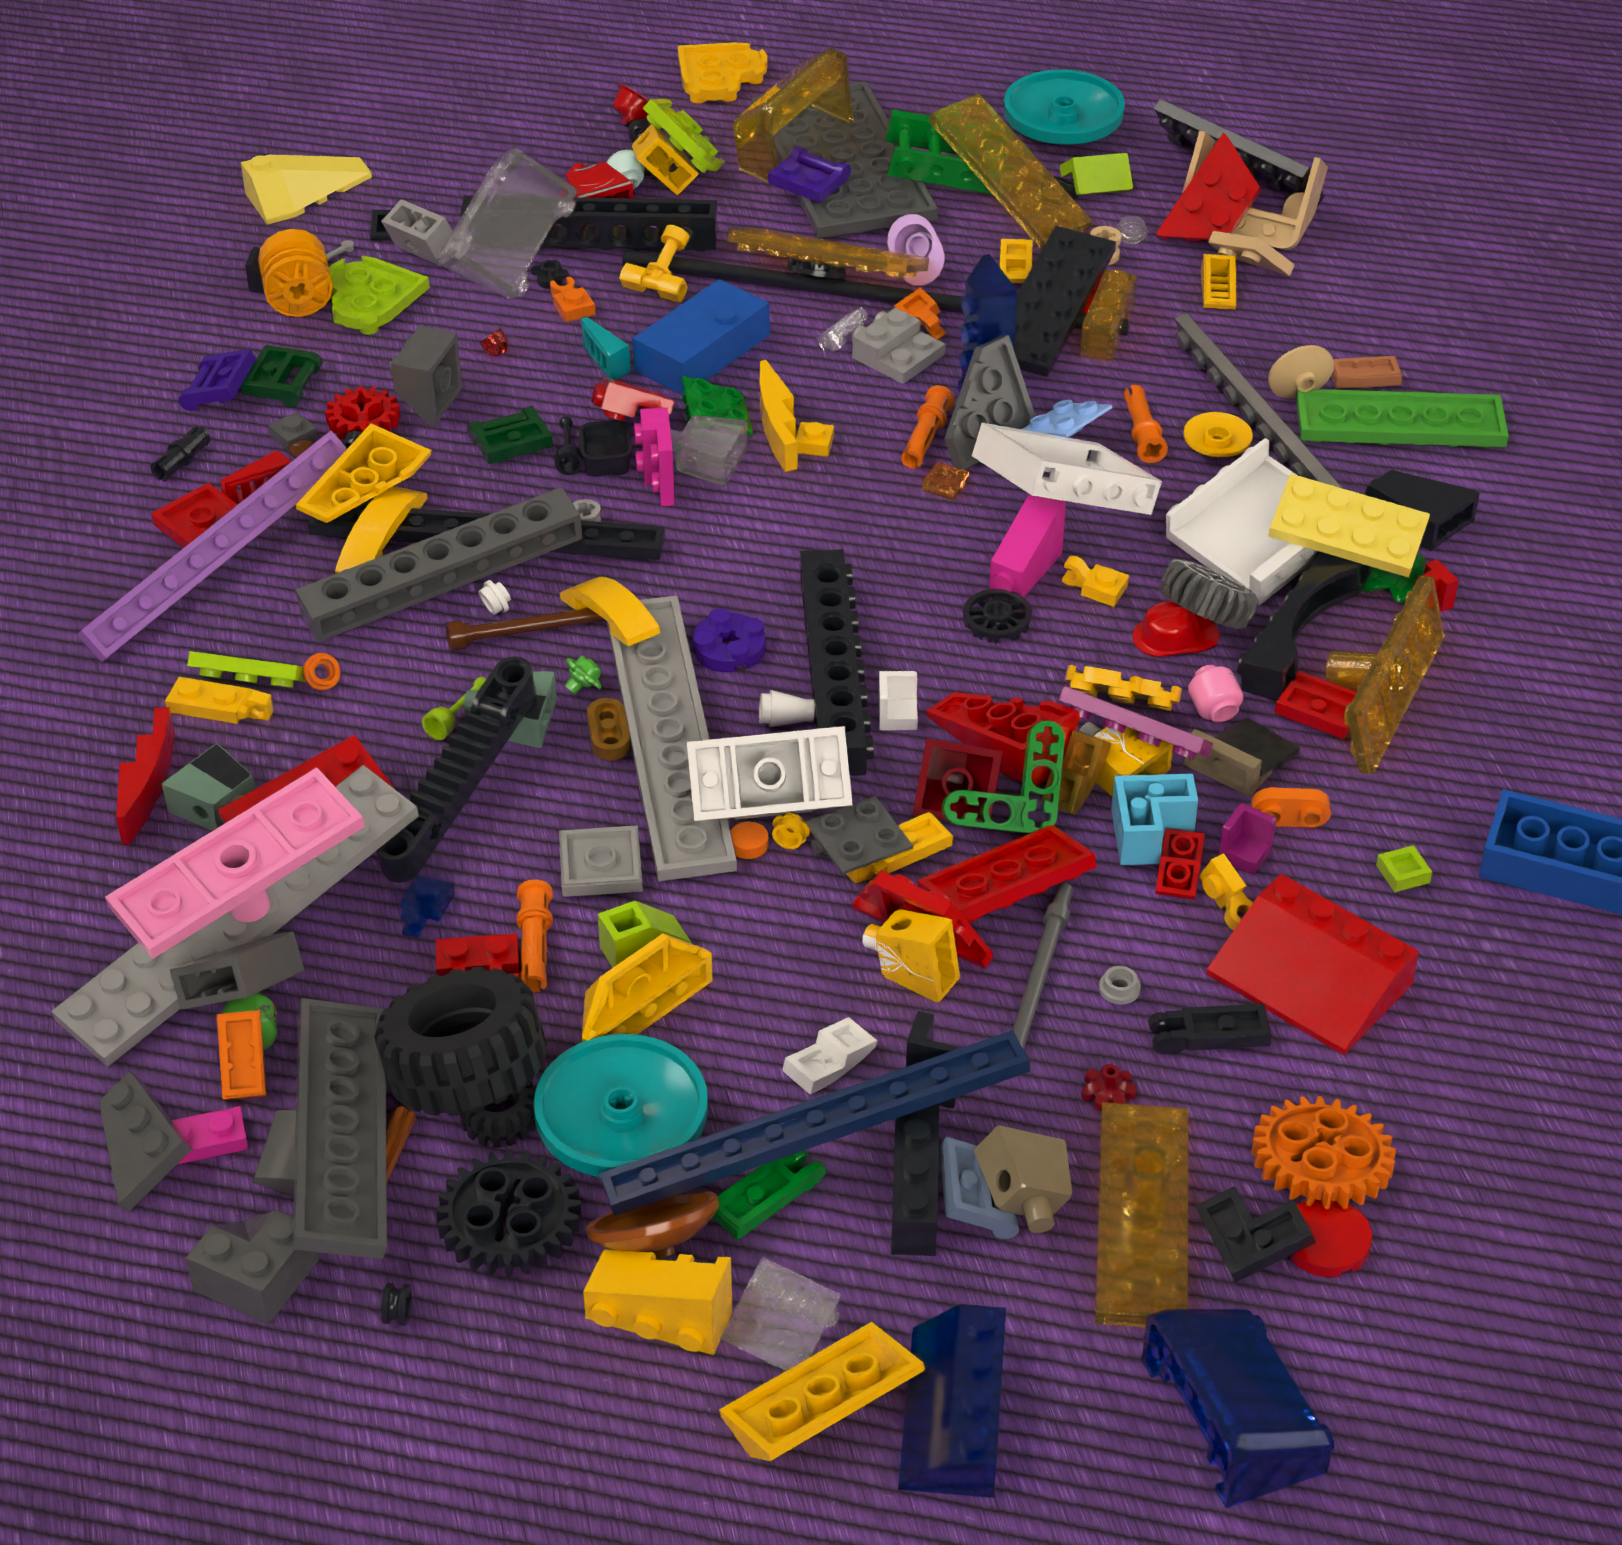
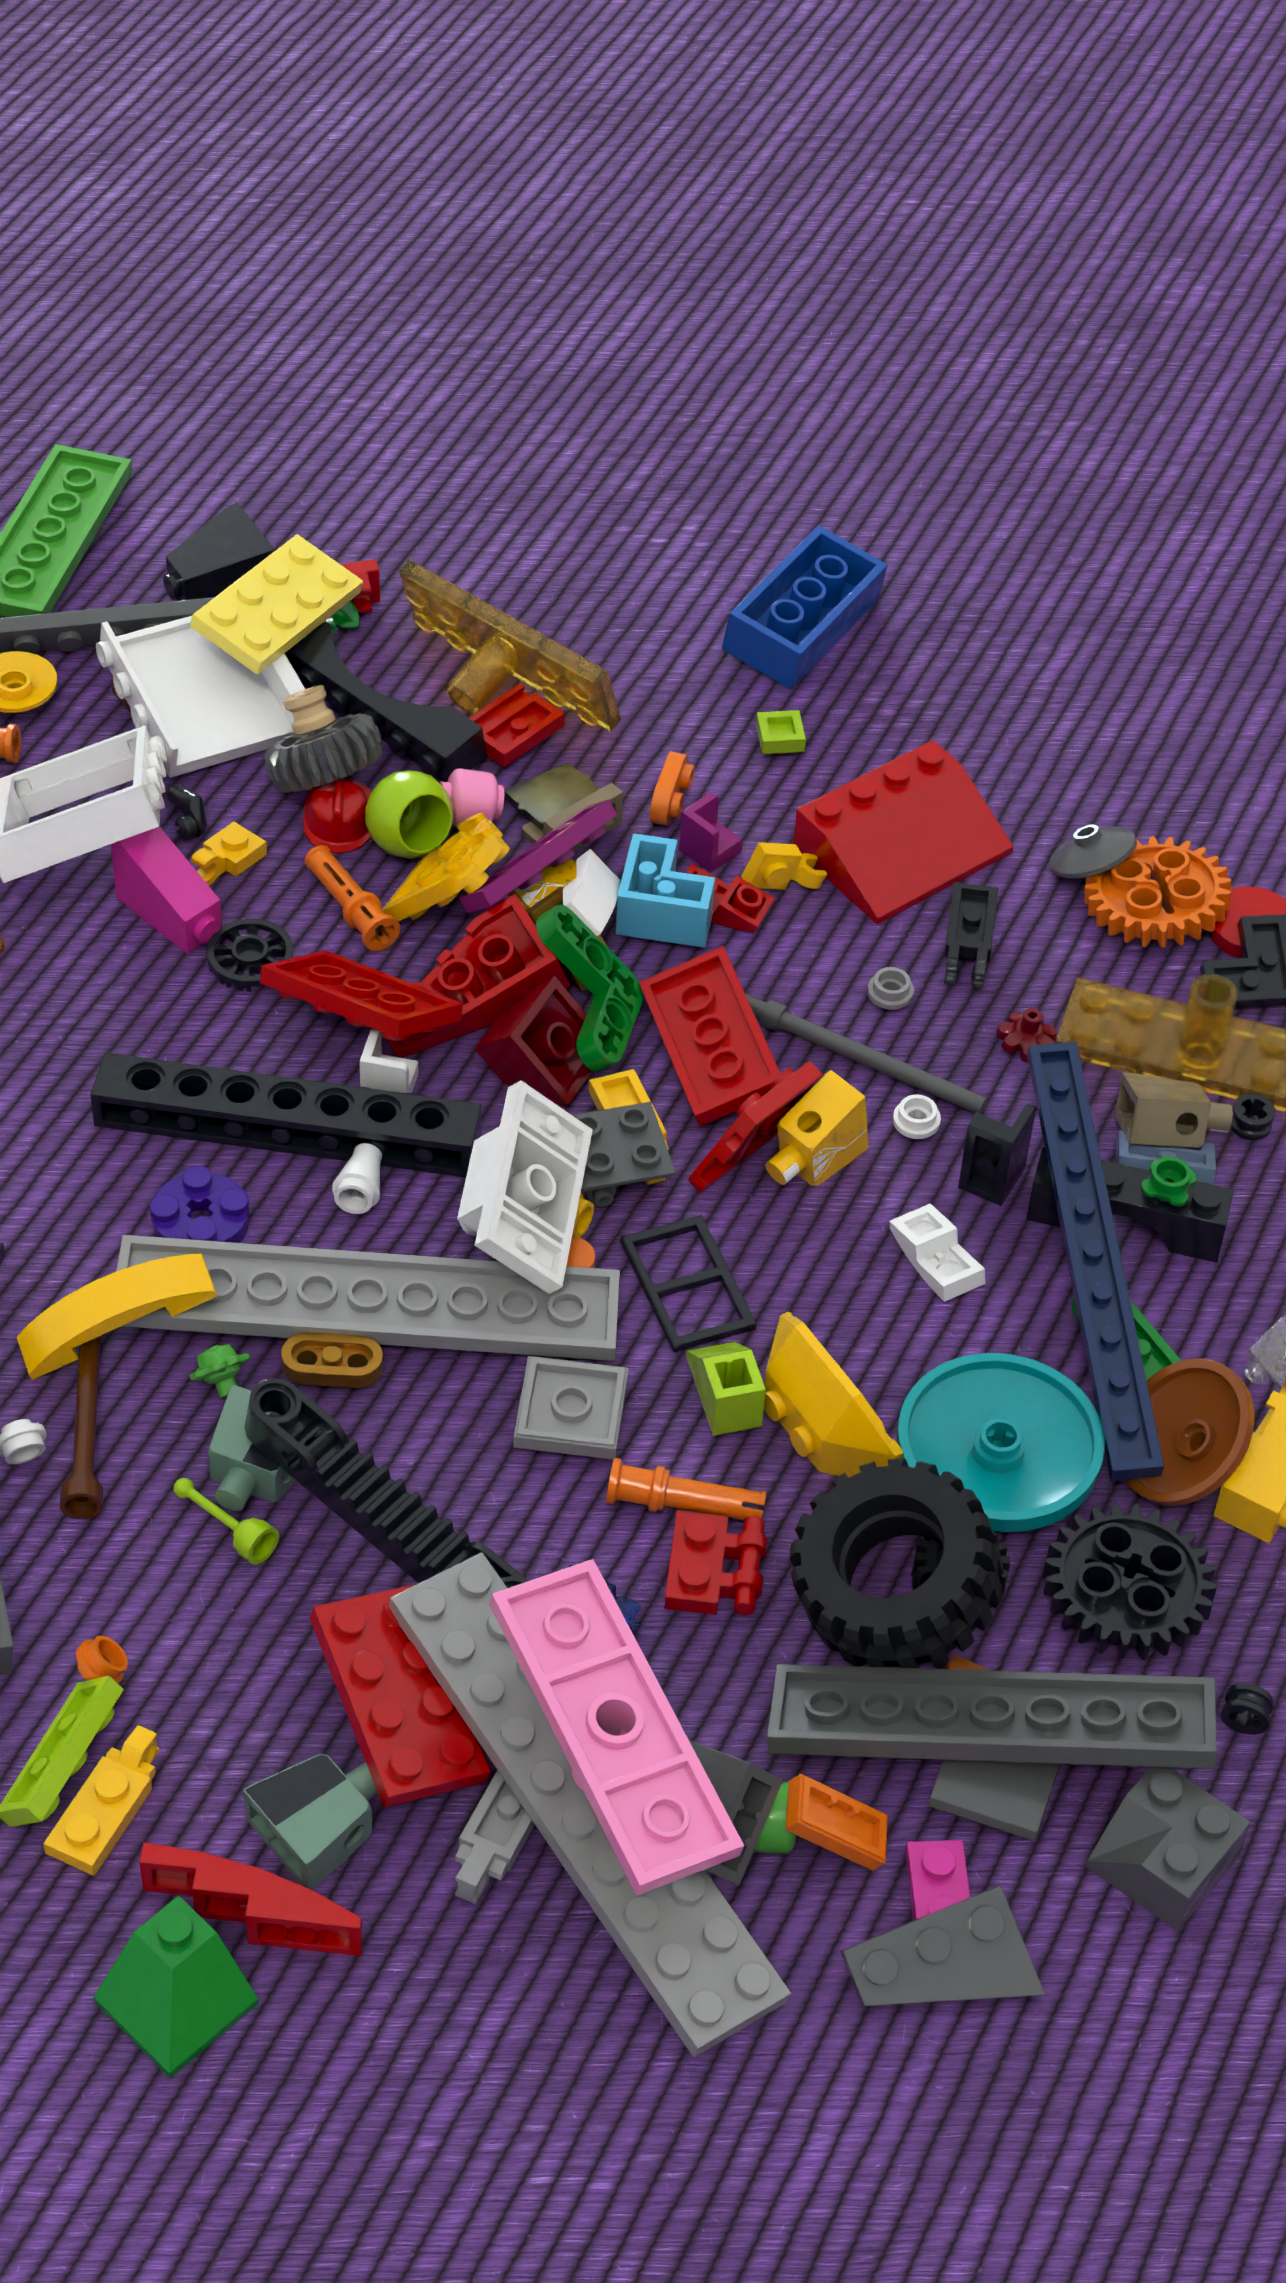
camera: 80 degrees left, 5 degrees up
(82, 758) = (175, 1988): none -> green slope
(766, 930) = (718, 1273): none -> black window
(911, 1151) = (1169, 1180): none -> green plate
(953, 662) = (361, 994): none -> red plate
(975, 1021) = (917, 1117): none -> white plate
(1054, 664) = (326, 869): none -> orange pin
(1062, 1248) = (1250, 1105): none -> black bush
(1104, 757) = (592, 892): none -> white slope
(1130, 552) = (192, 805): none -> black arm
(1166, 652) = (409, 814): none -> lime helmet
(1243, 571) = (309, 709): none -> tan wheel
(1353, 1097) = (1092, 851): none -> dark grey dish

